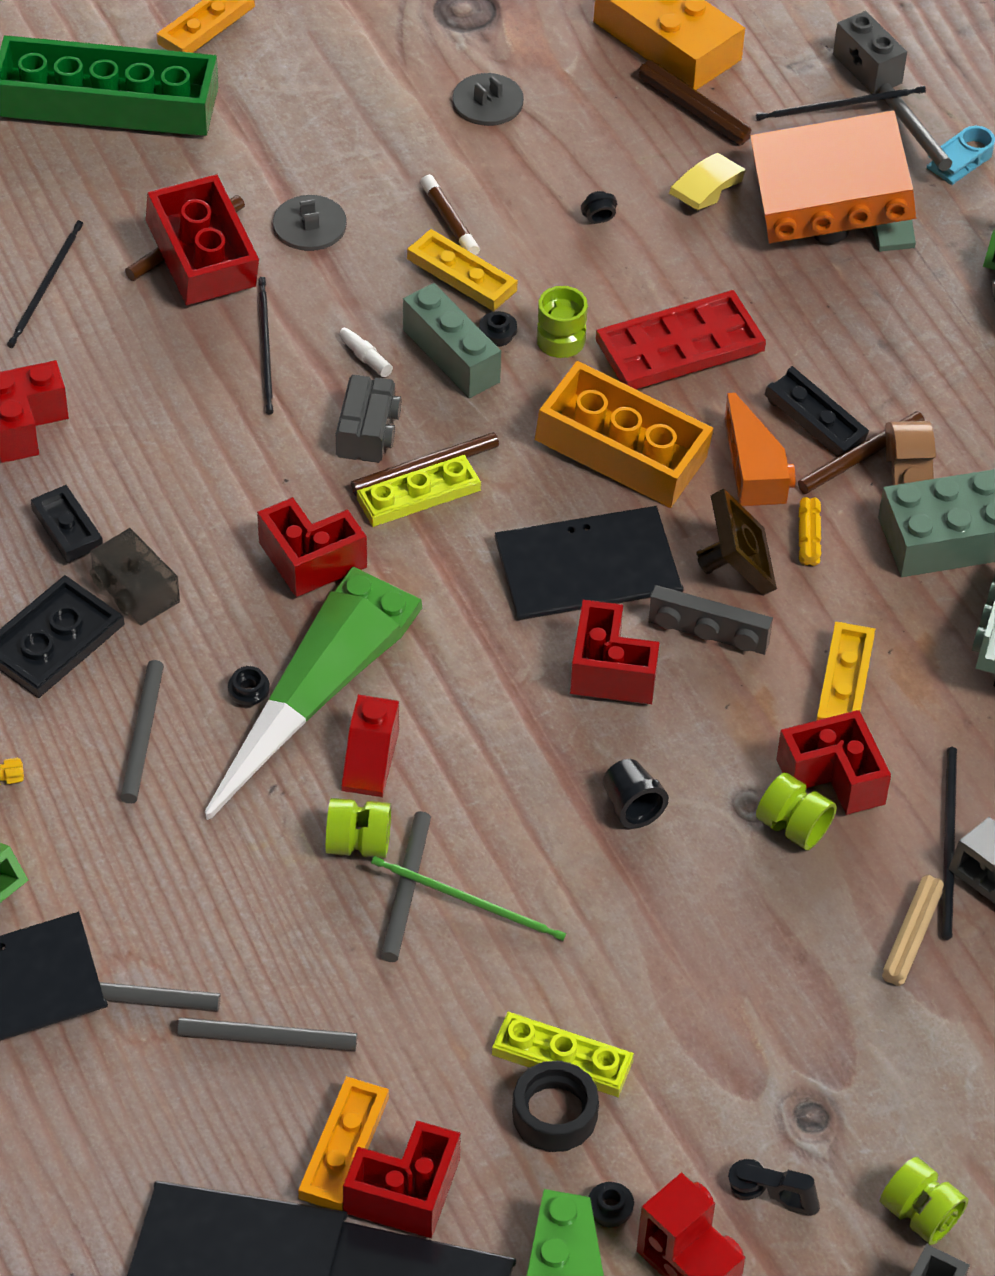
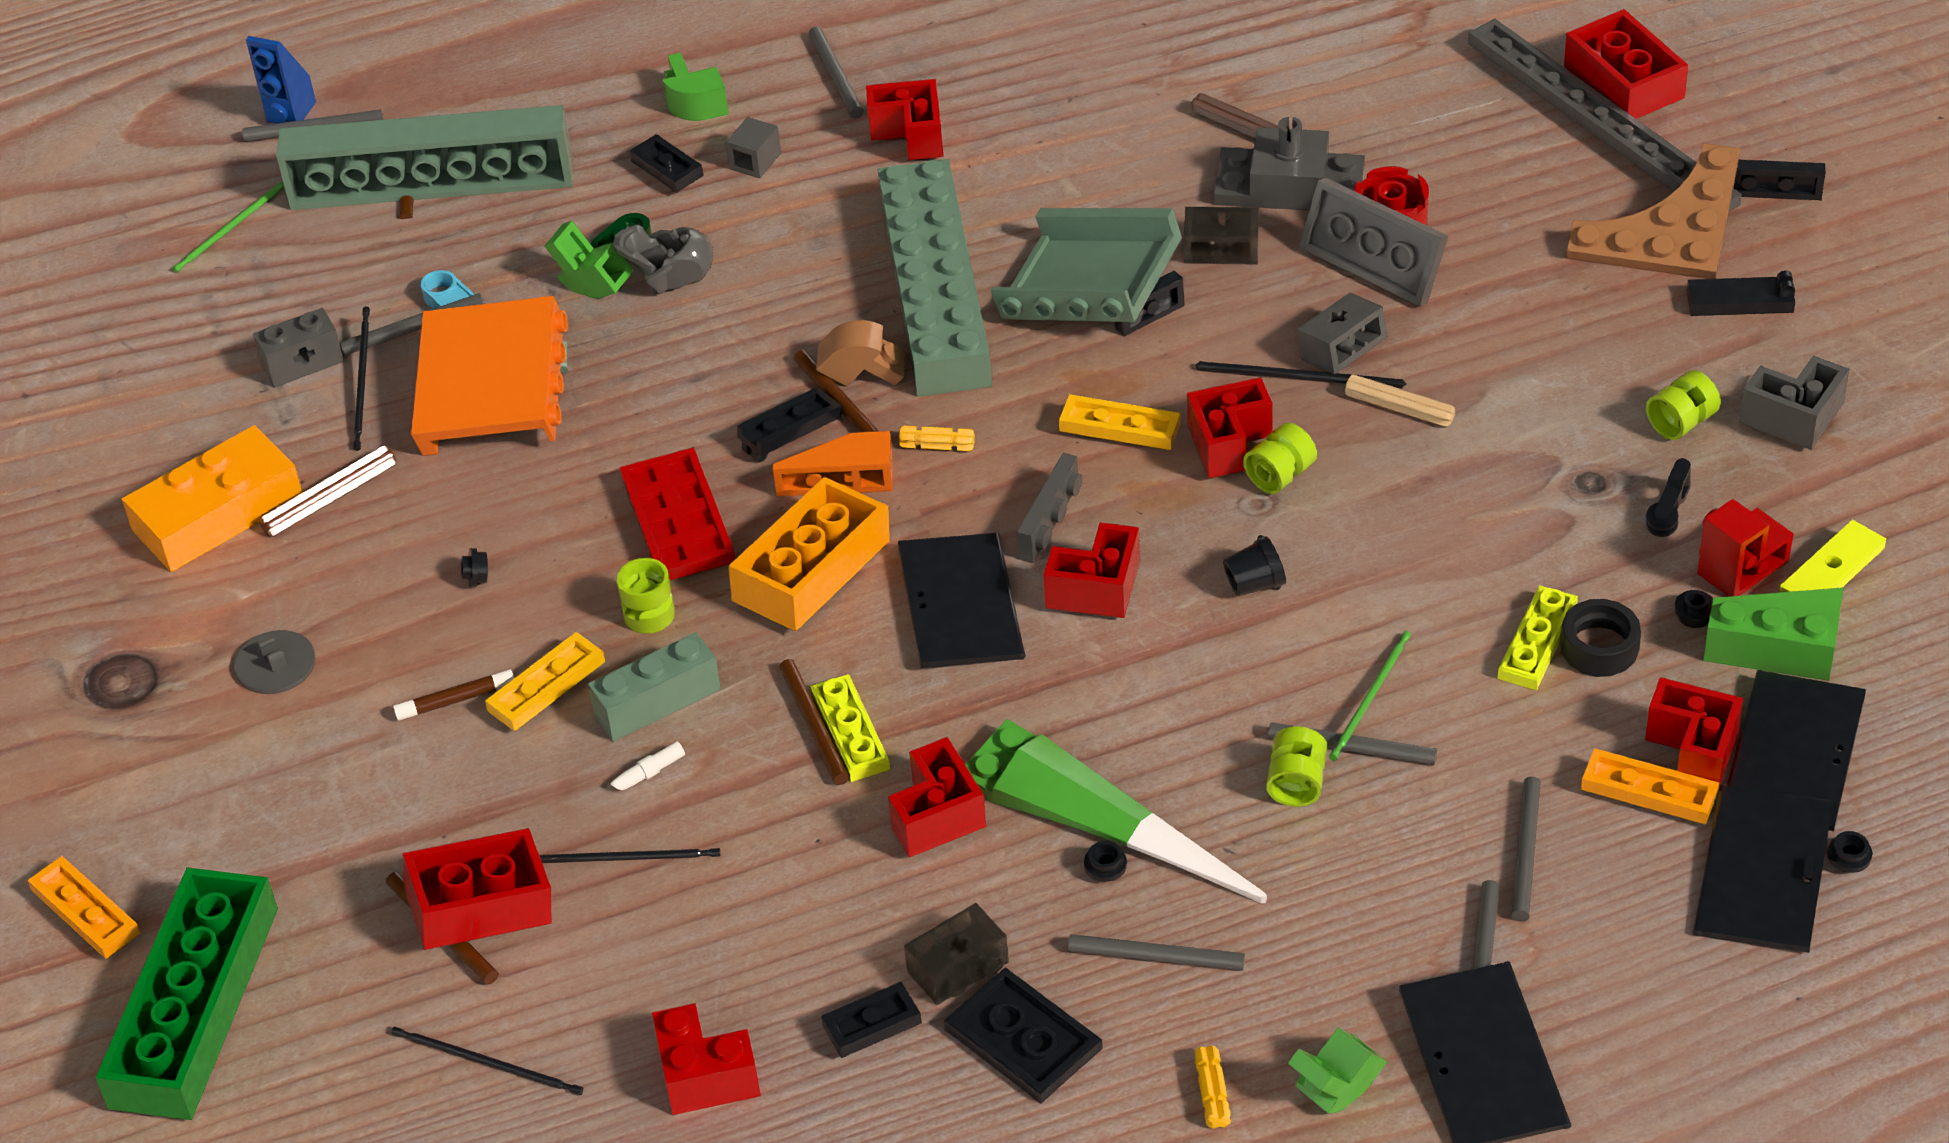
camera: 80 degrees left, 5 degrees down
(309, 222) = (436, 816): dark grey piece -> none
(366, 419) = (754, 759): dark grey brick -> none
(370, 745) = (1191, 759): red slope -> none
(499, 327) = (630, 651): black plate -> none
(706, 180) = (454, 483): light yellow slope -> none
(740, 544) = (966, 473): dark brown tile -> none

